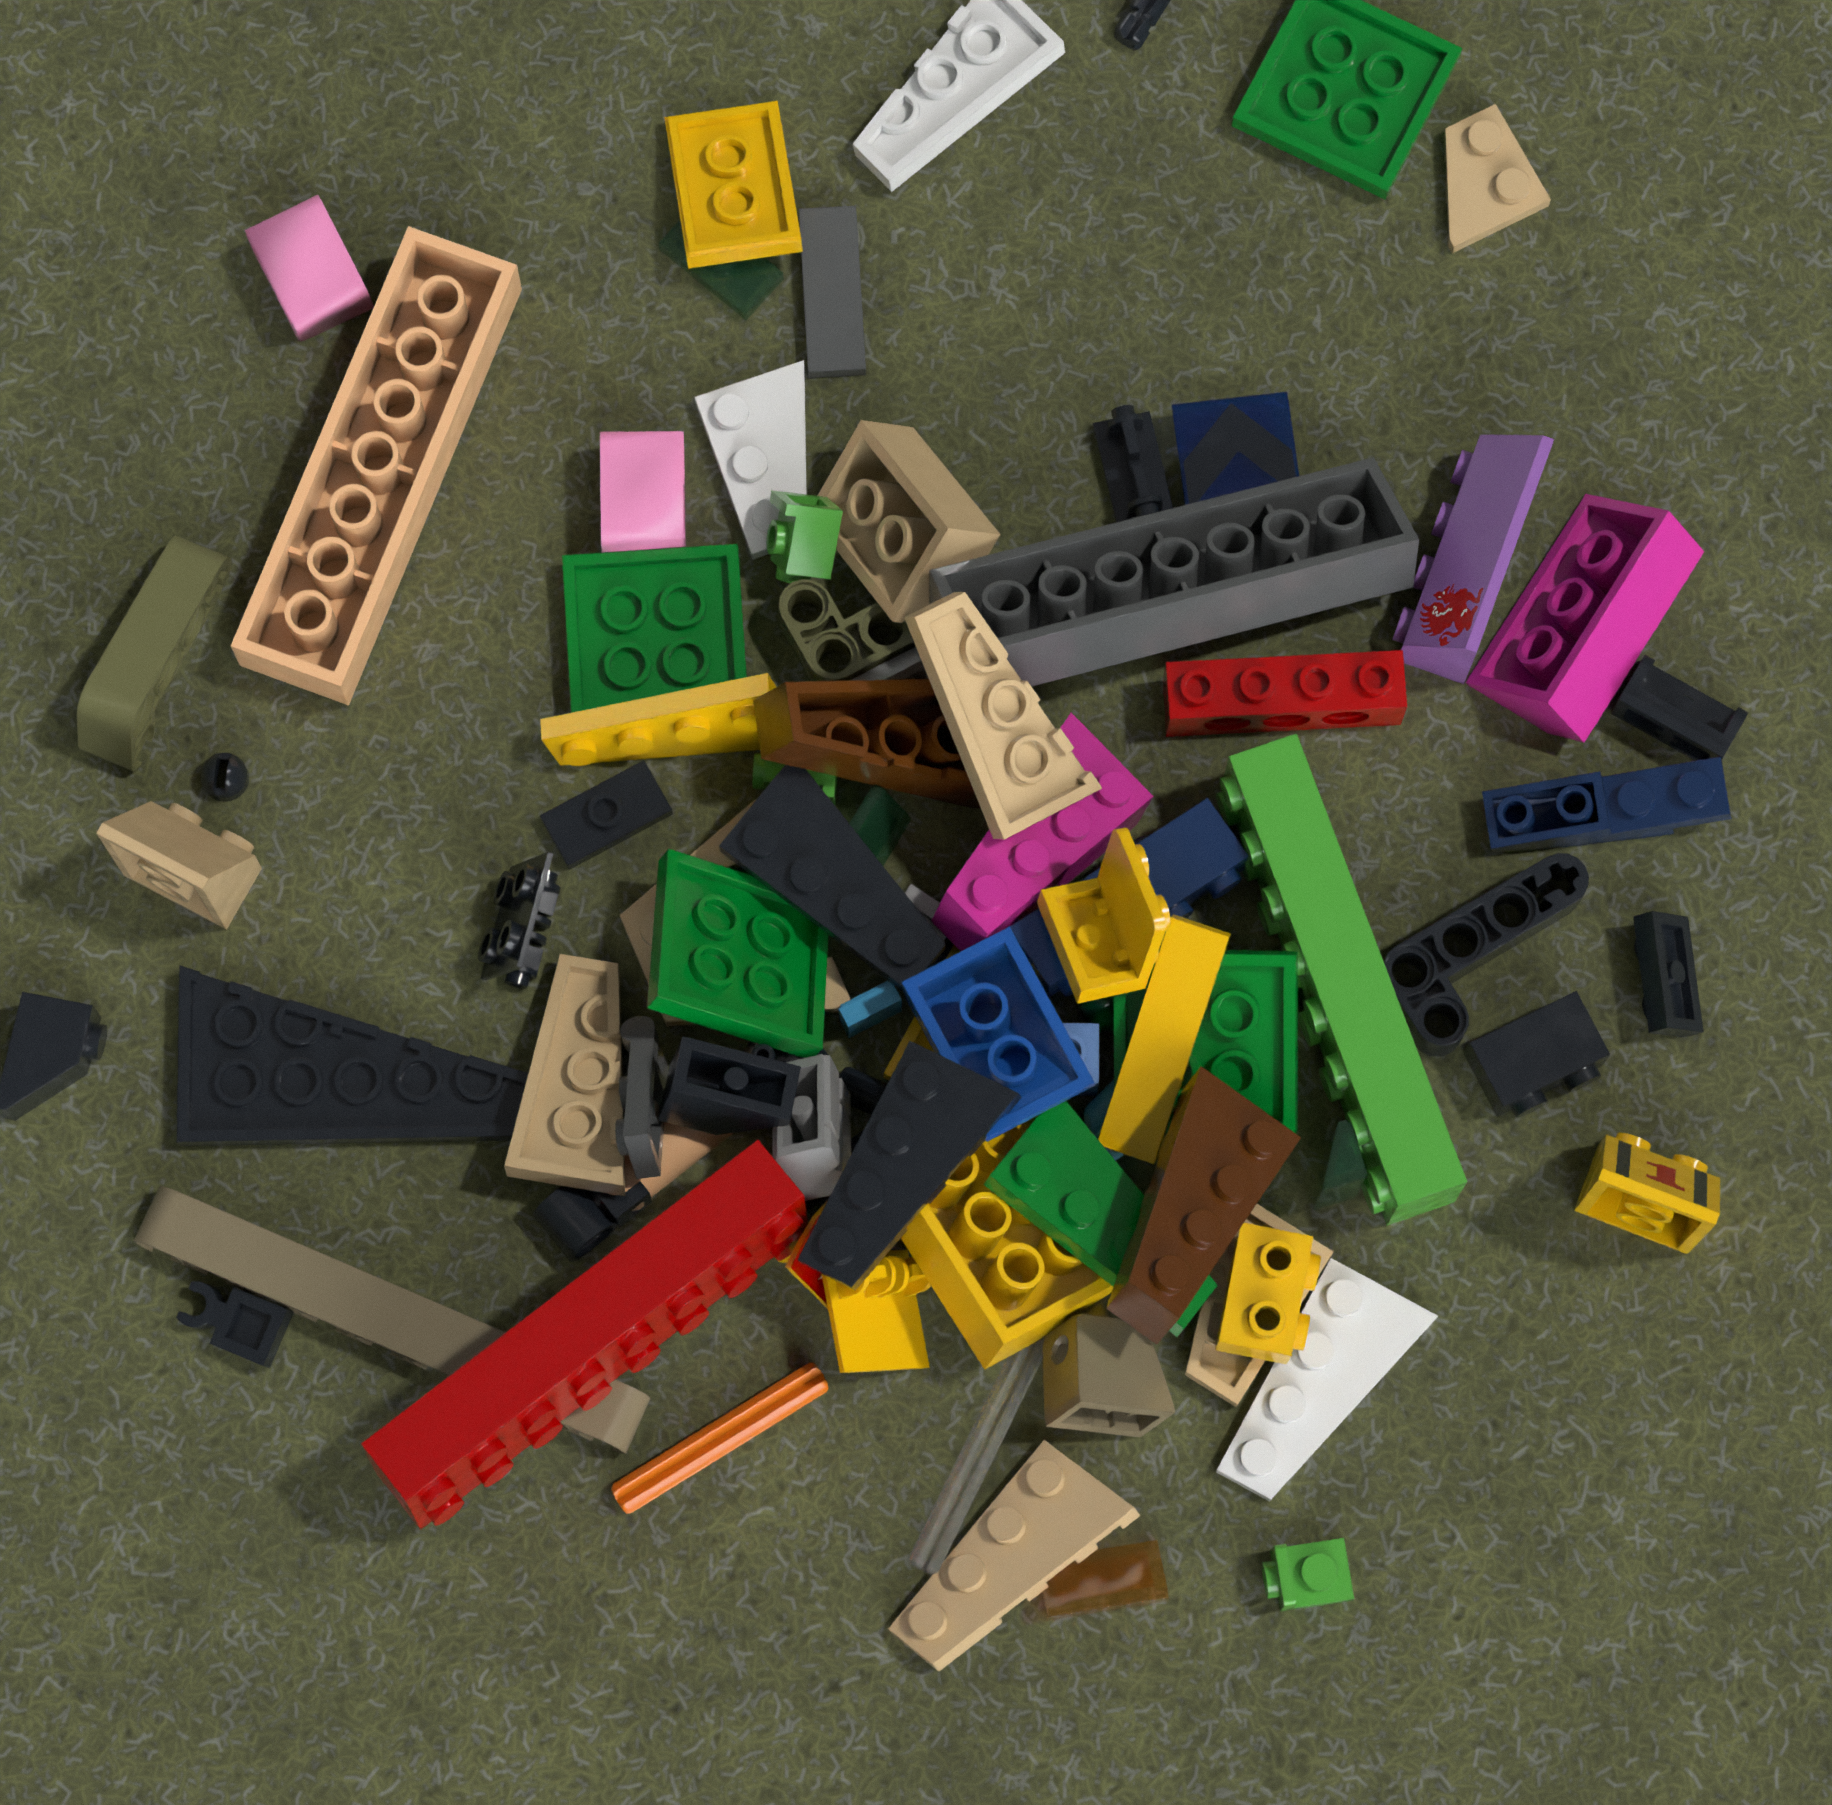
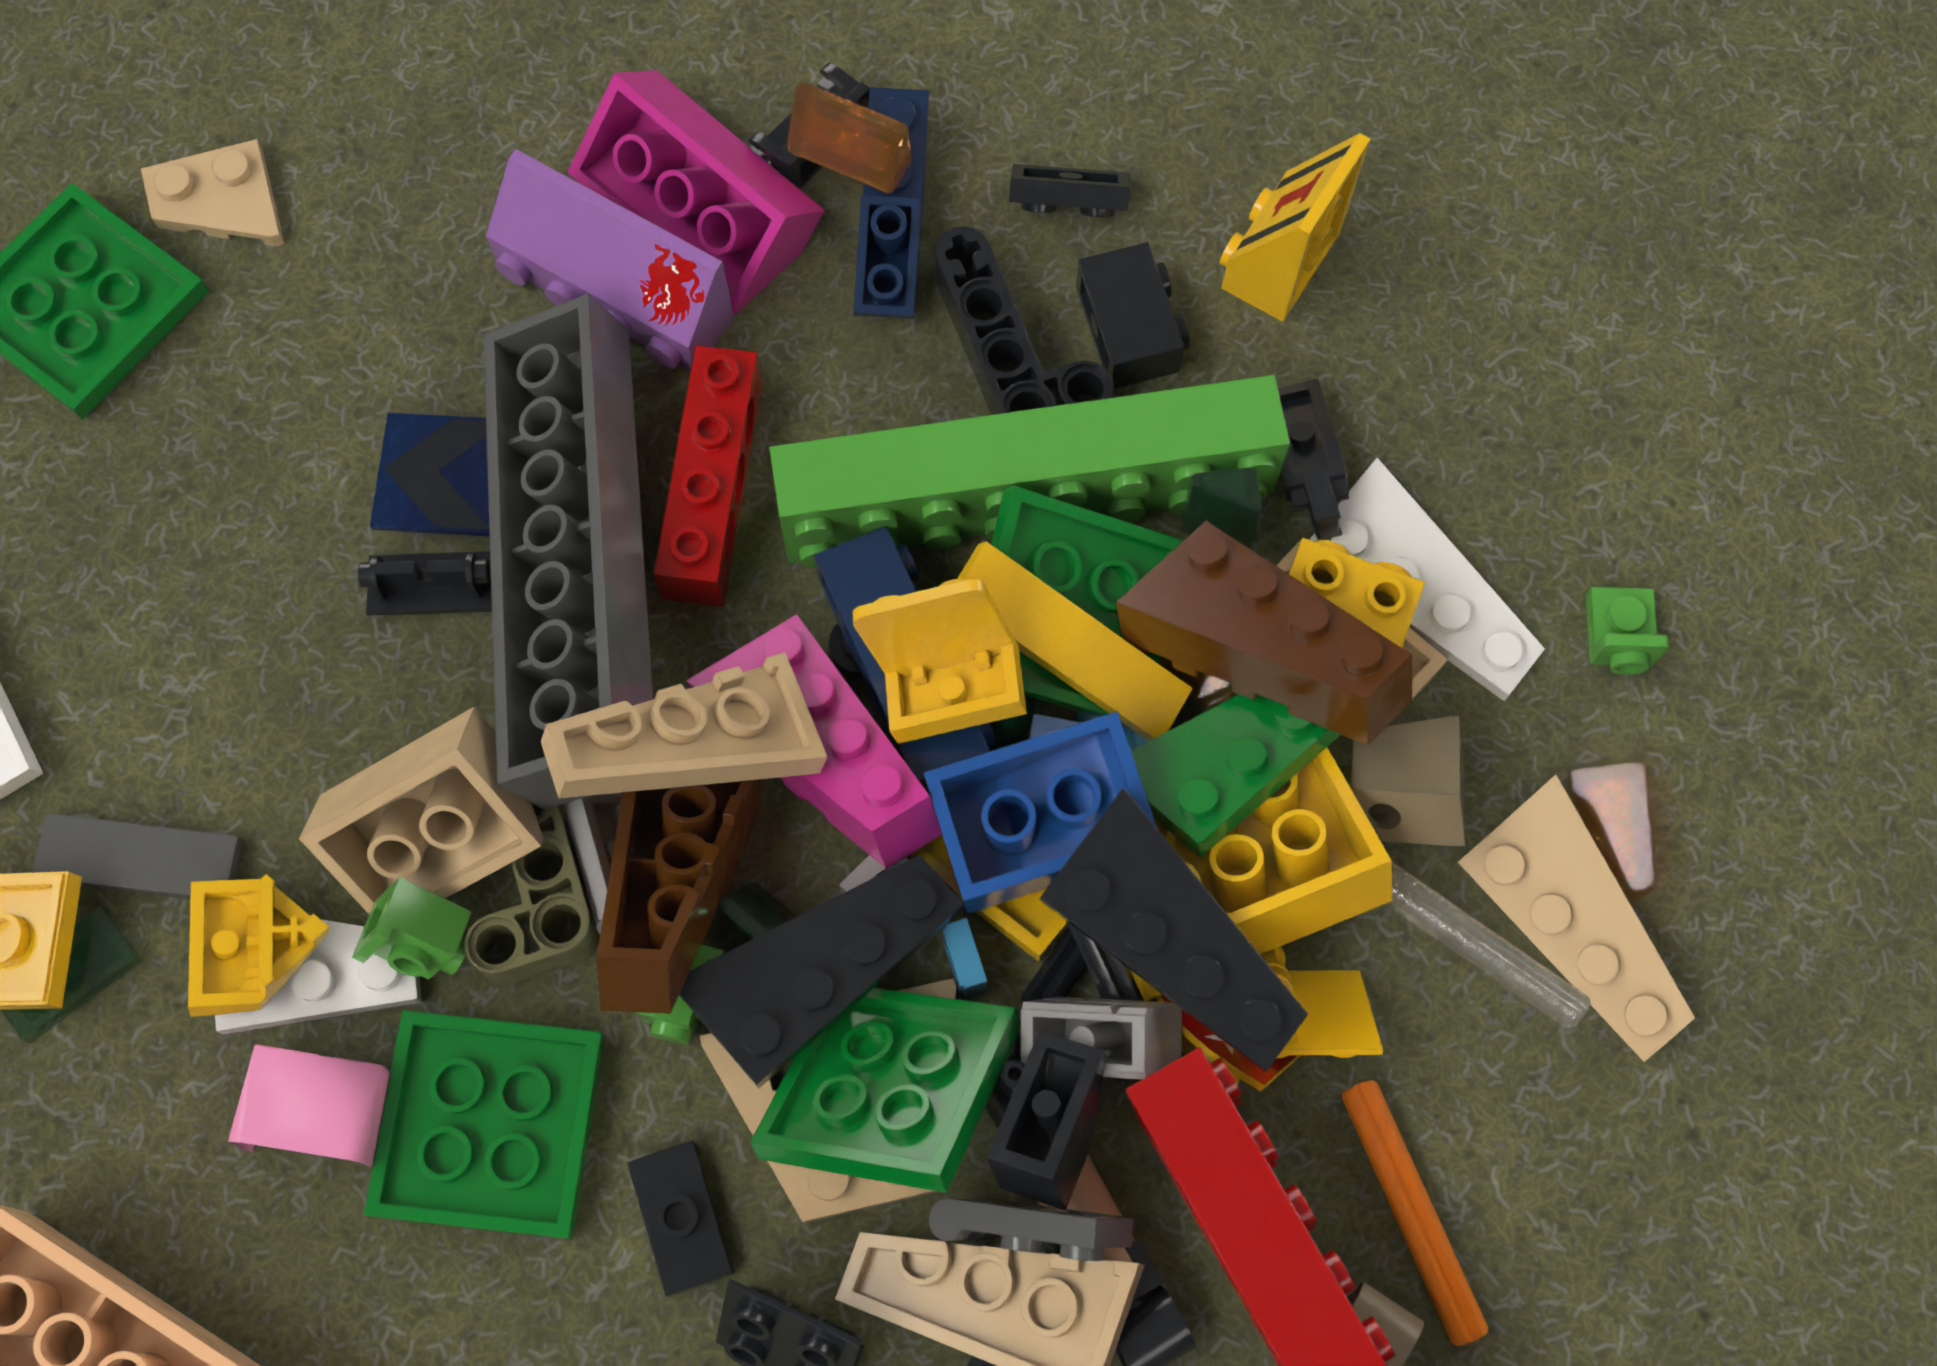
camera: 80 degrees left, 5 degrees down
(661, 726) = (595, 1129): yellow wing -> none
(769, 399) = (244, 944): none -> yellow slope
(1424, 1244) = (1313, 466): none -> black hinge
(1647, 746) = (848, 138): none -> clear orange slope

